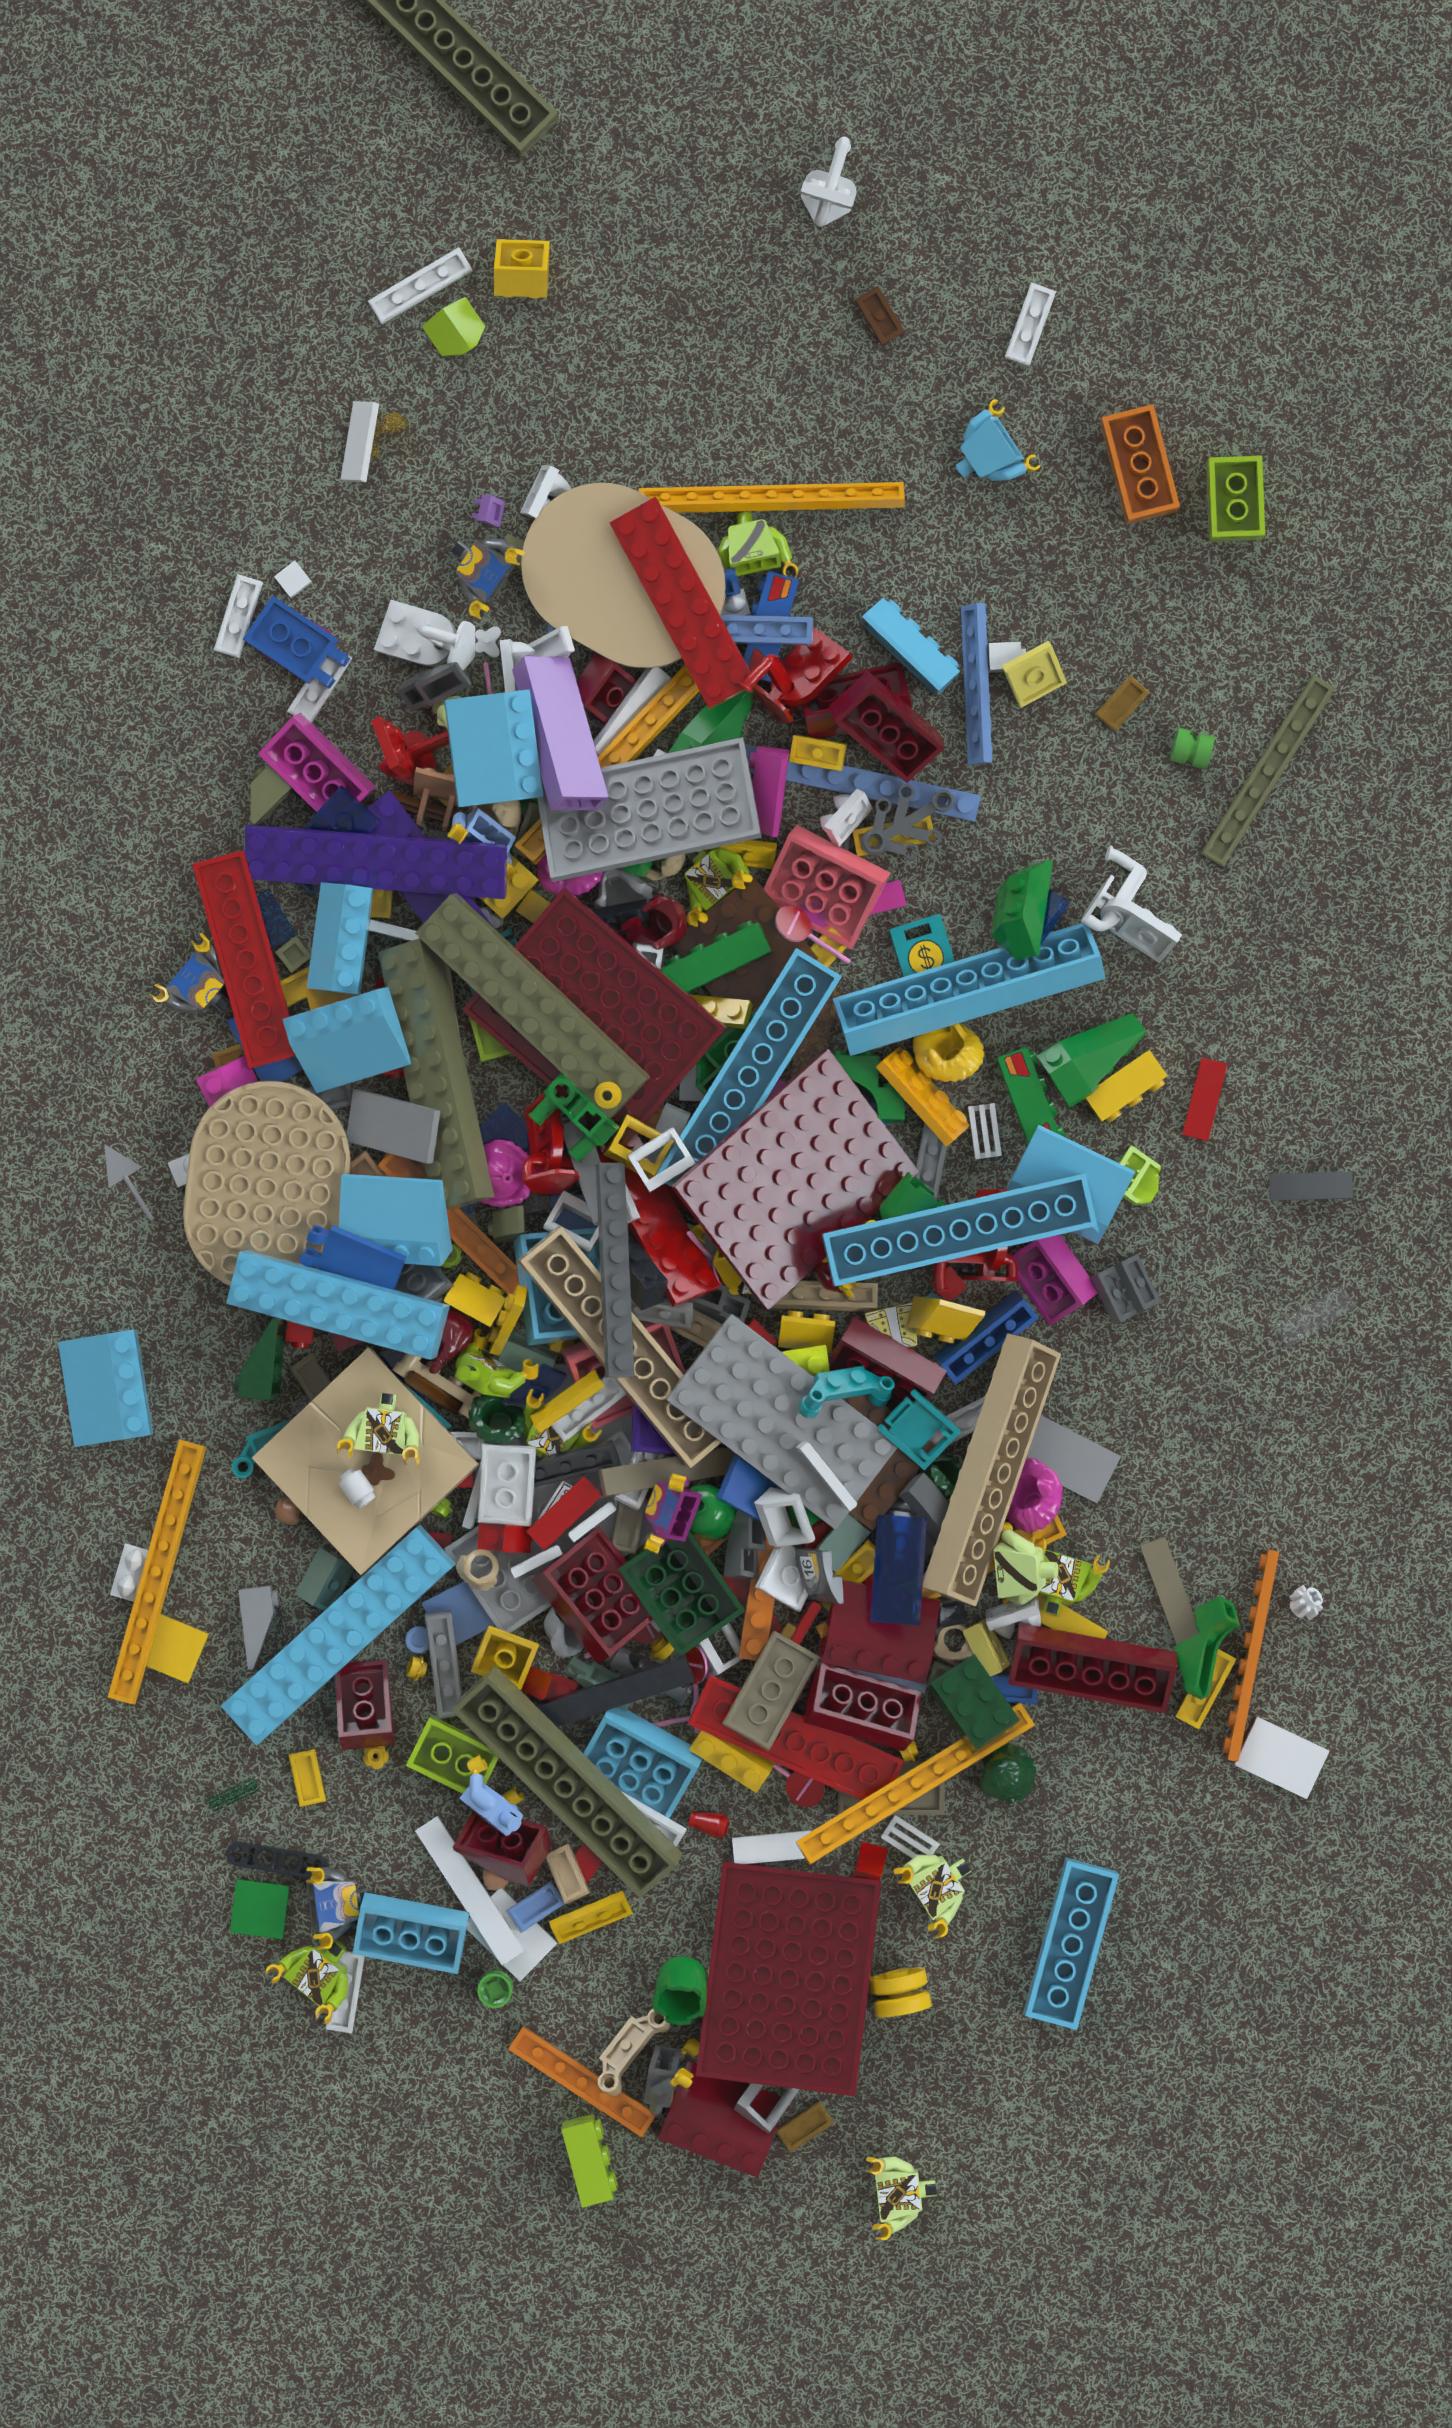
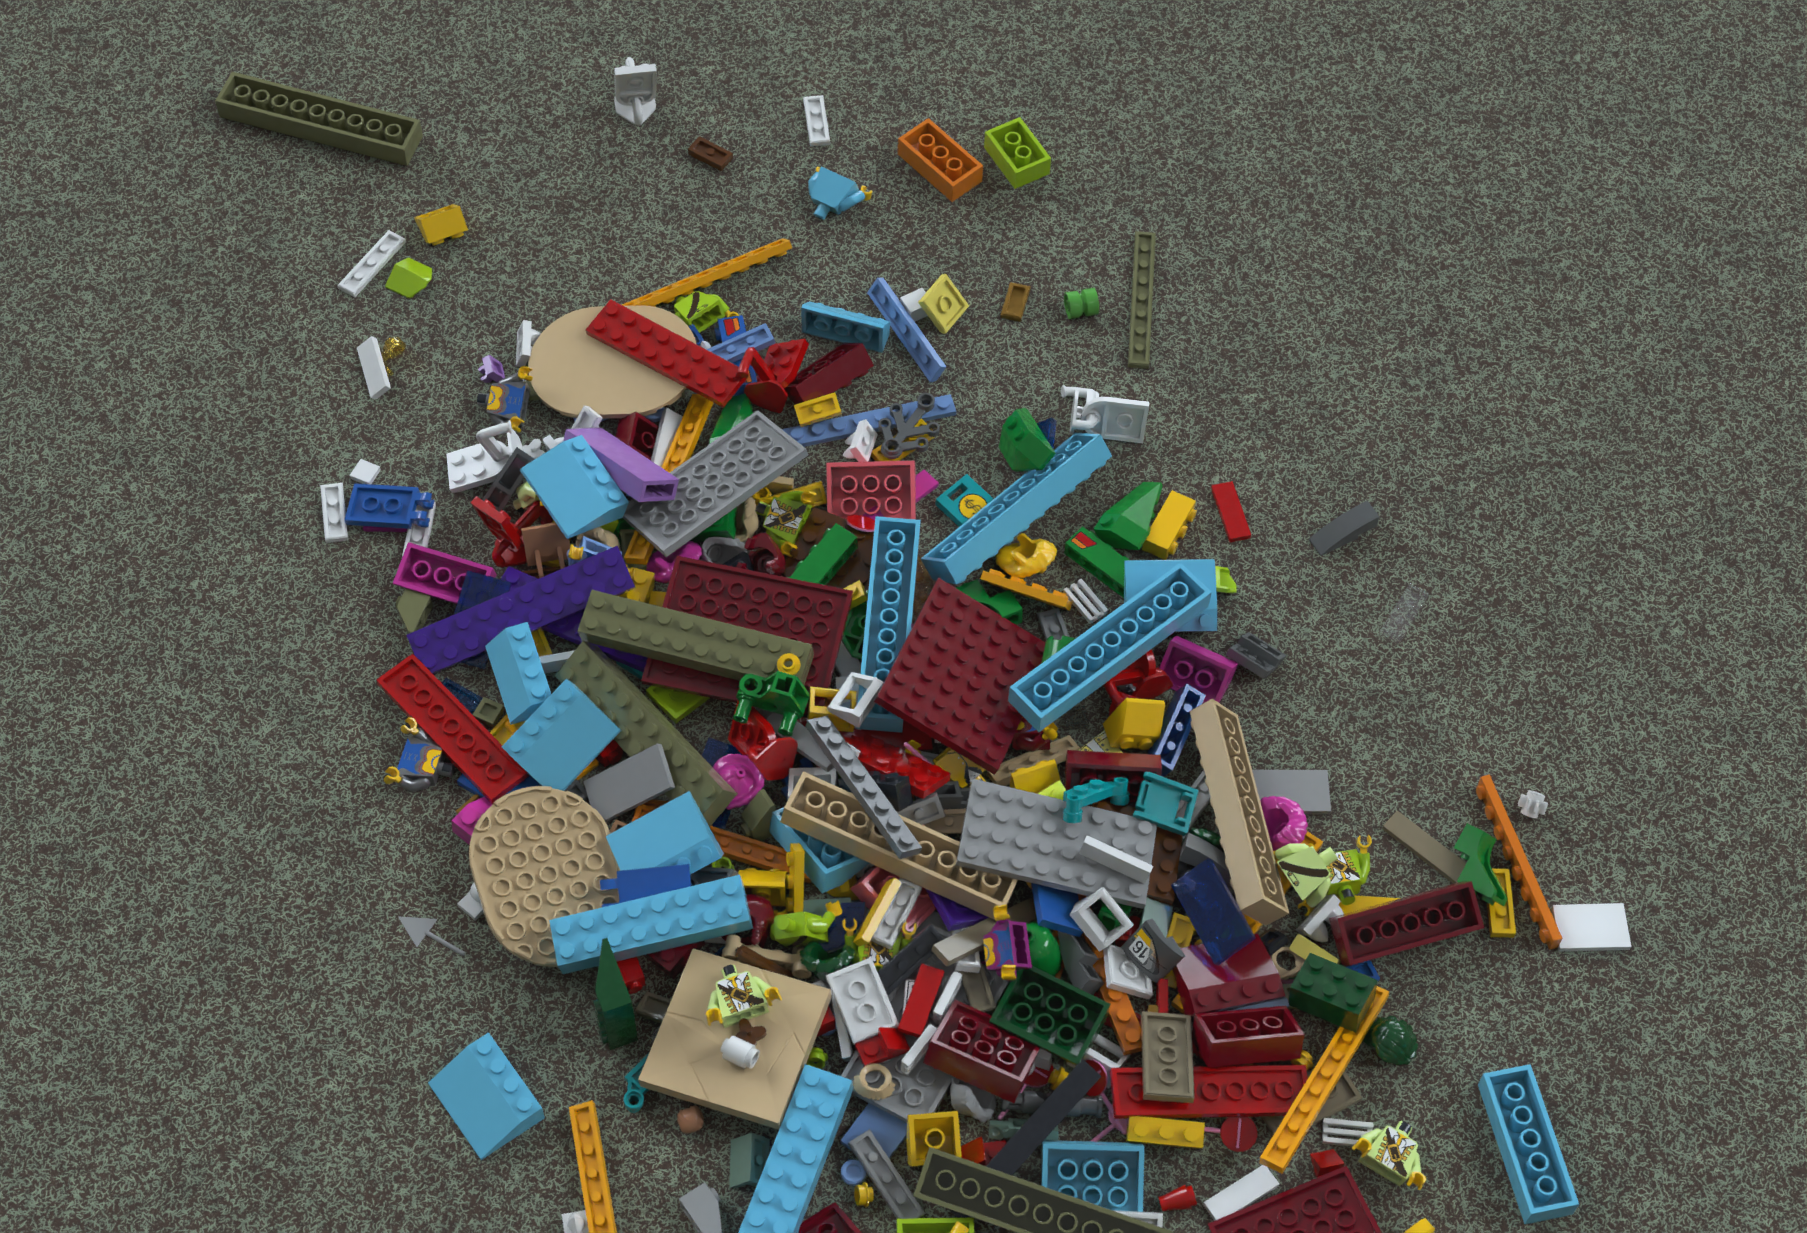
camera: 25 degrees left, 30 degrees down
(769, 786) = (793, 424): dark pink slope -> none
(886, 727) = (858, 366): dark red brick -> none

